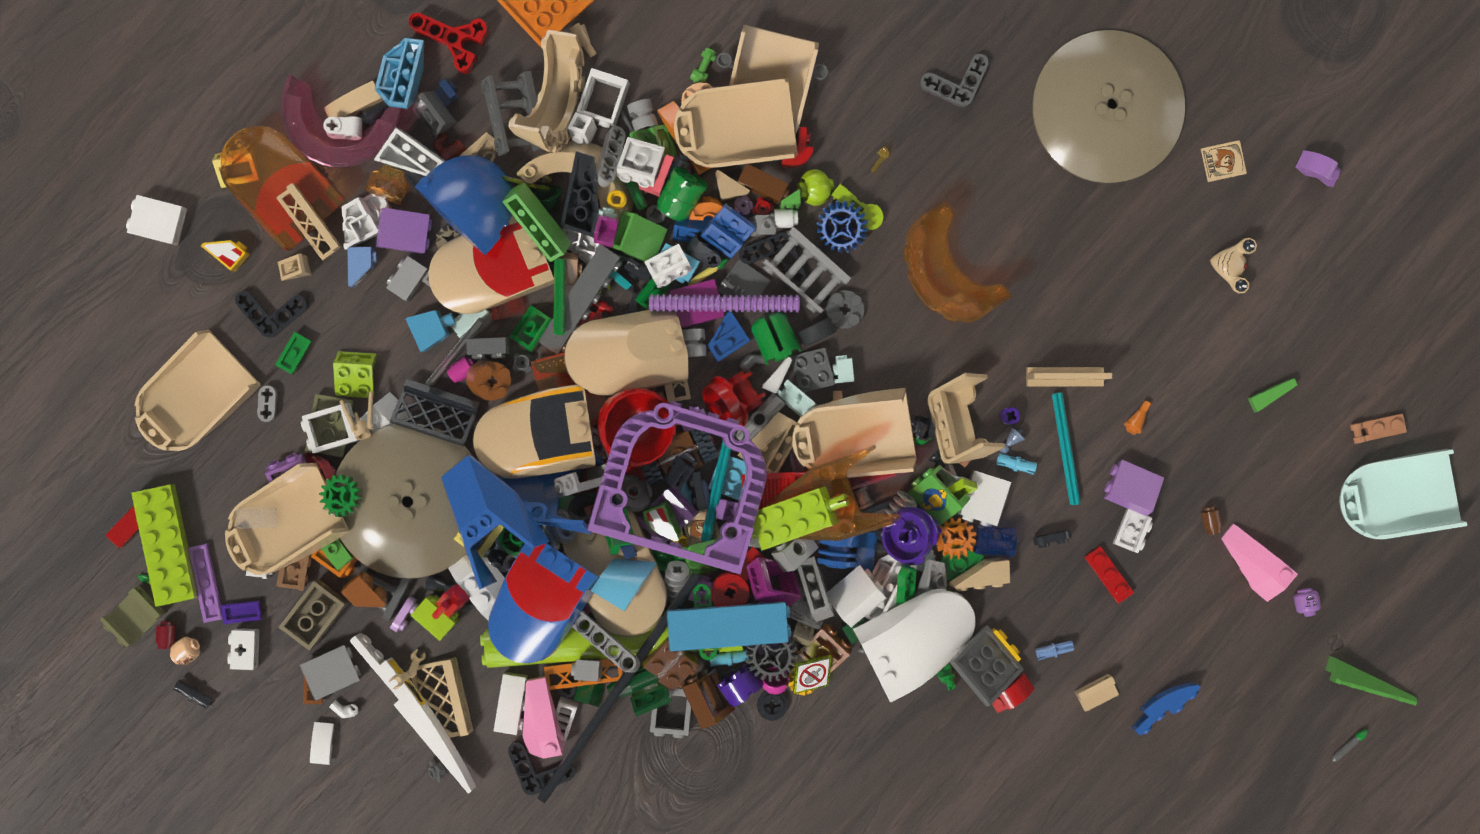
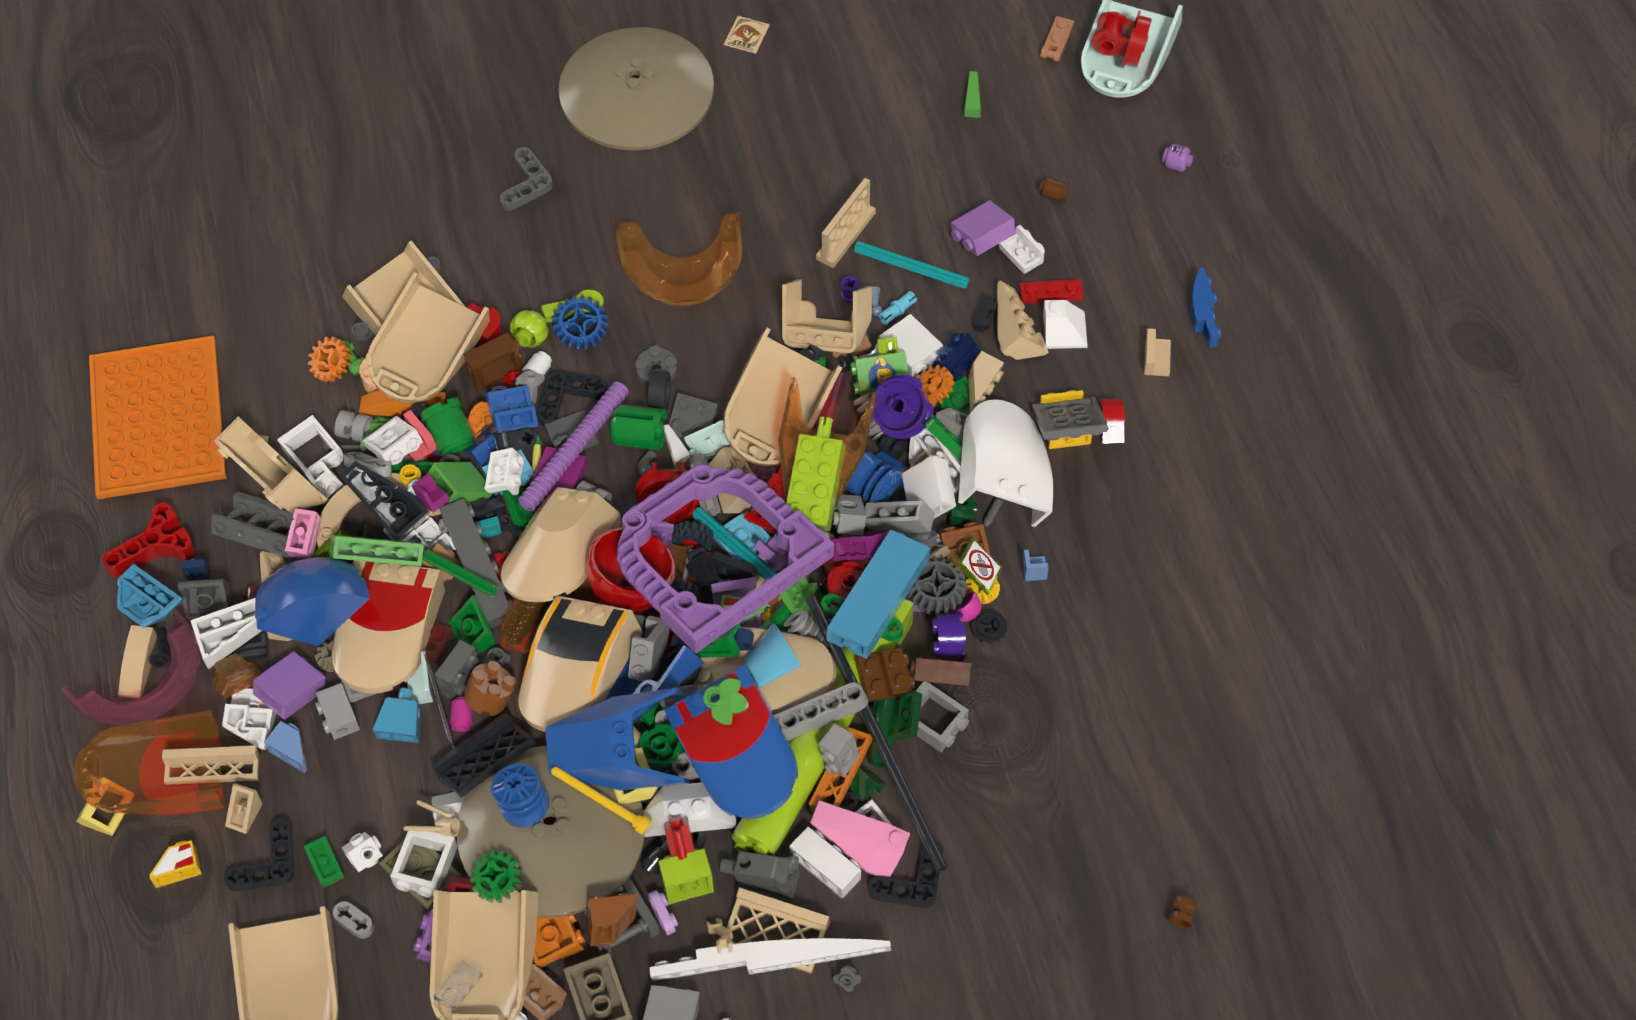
camera: 60 degrees left, 30 degrees down
(156, 220) = (90, 913): white brick -> none
(315, 376) = (362, 851): none -> white brick
(338, 554) = (553, 931): bright green plate -> none
(346, 128) = (151, 678): white piece -> none
(354, 374) = (389, 815): lime bracket -> none
(406, 486) = (520, 795): none -> blue wheel
(448, 564) = (638, 822): none -> yellow piece
(474, 672) = (764, 872): none -> dark grey piece
(514, 158) = (303, 534): none -> bright pink brick
(556, 583) = (729, 700): none -> bright green plate
(688, 52) = (329, 359): none -> orange gear
(727, 337) = (609, 471): blue wing -> none
(729, 188) = (473, 392): tan slope -> none
(729, 658) = (916, 637): medium azure pin -> none
(792, 201) = (526, 345): bright green slope -> none
(809, 251) = (590, 356): light grey fence -> none
(843, 369) = (711, 391): light aqua brick -> none
(843, 709) = (1034, 567): none -> medium blue panel
(884, 154) = (542, 264): clear yellow hand -> none
(946, 677) = (1062, 463): green piece -> none
(1050, 571) = (1015, 327): none -> tan wedge
(1054, 650) = (1093, 366): medium blue axle -> none
(1079, 605) = (1064, 325): none -> white slope
(1136, 421) = (926, 201): orange cone -> none
(1232, 263) = (837, 66): tan head -> none
(1262, 569) = (1124, 173): bright pink wedge -> none
(1349, 745) = (1329, 181): dark grey piece -> none
(1350, 676) = (1256, 162): bright green wedge -> none
(1408, 504) = (1122, 36): none -> red piece

